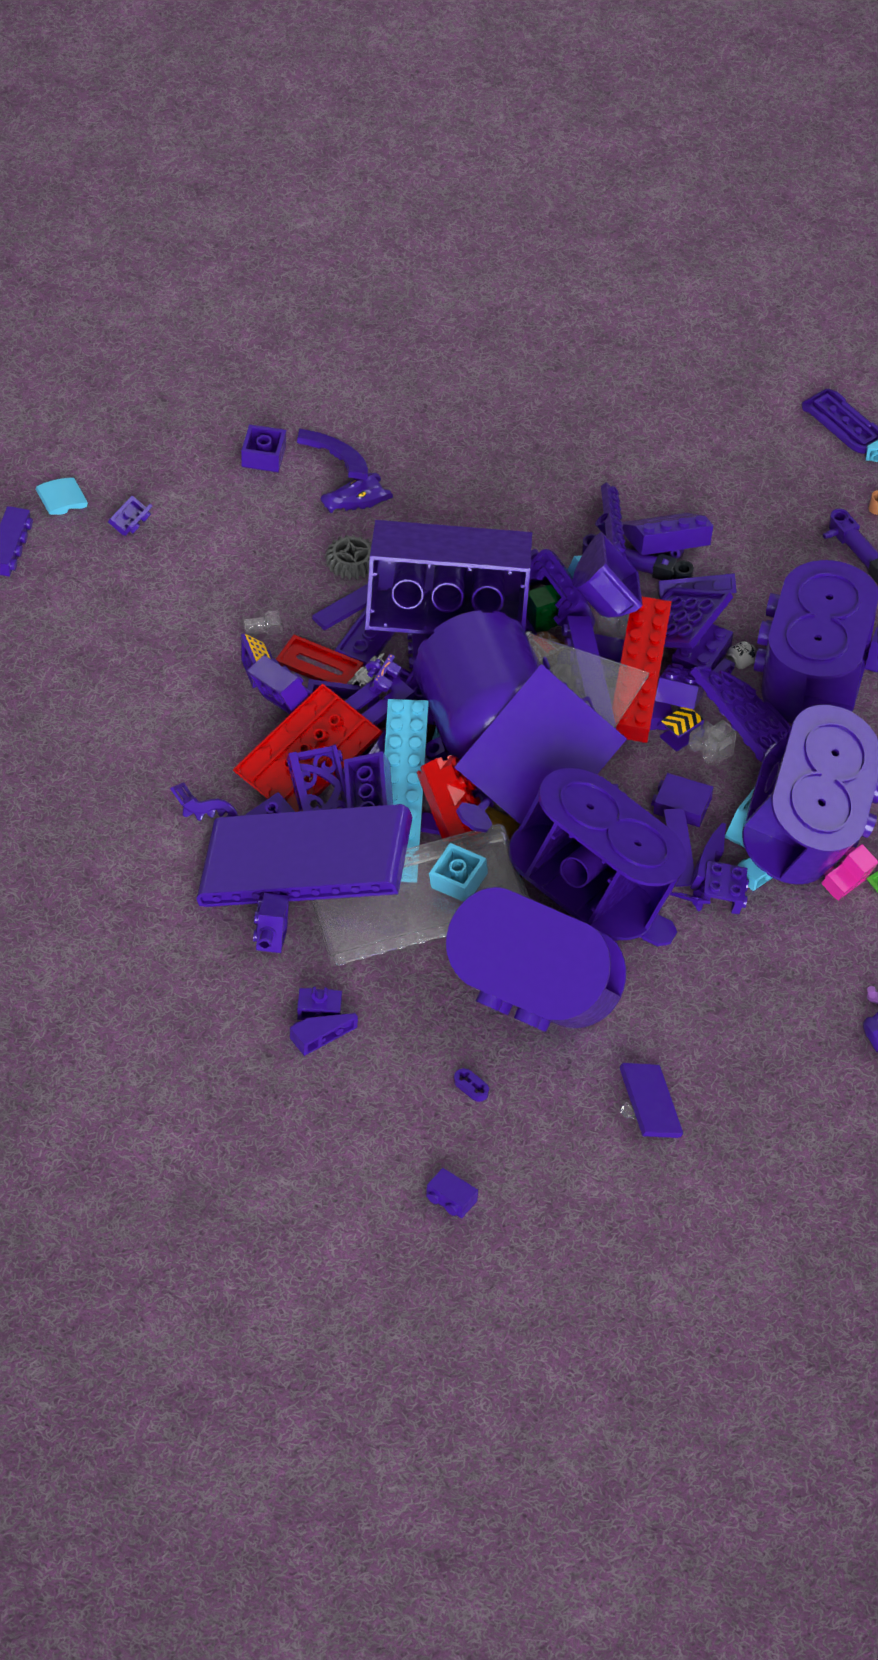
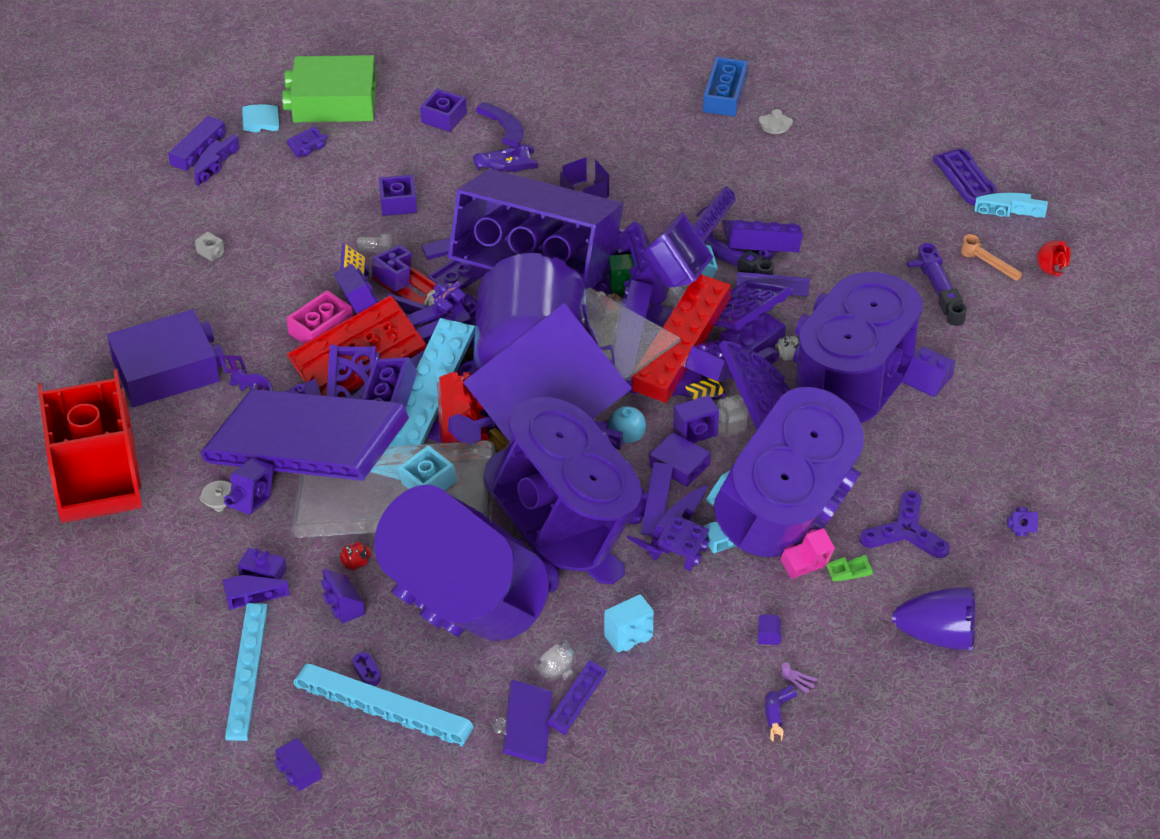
camera: 20 degrees right, 5 degrees down
(36, 556) = (211, 159): none -> dark purple slope
(86, 663) = (209, 246): none -> light grey brick
(102, 920) = (90, 449): none -> red brick
(107, 801) = (165, 357): none -> dark purple brick
(129, 446) = (331, 88): none -> bright green brick
(234, 939) = (214, 494): none -> light grey piece
(249, 723) = (318, 317): none -> dark pink brick
(262, 561) = (397, 195): none -> dark purple brick
(300, 650) = (393, 267): none -> dark purple brick
(354, 1114) = (246, 672): none -> medium azure plate
(405, 972) = (355, 555): none -> red head
(415, 1018) = (342, 596): none -> dark purple slope
(469, 498) = (576, 173): none -> dark purple piece
(505, 1114) = (384, 703): none -> medium azure beam
(555, 361) = (725, 86): none -> blue brick
(619, 771) = (630, 422): none -> medium azure cylinder
(623, 394) = (776, 122): none -> light grey piece
(656, 1036) = (557, 662): none -> clear cylinder
(685, 754) = (696, 419): none -> dark purple brick
(687, 1065) = (577, 697): none -> dark purple plate
(709, 981) = (628, 623): none -> medium azure brick
(840, 957) = (769, 629): none -> dark purple piece

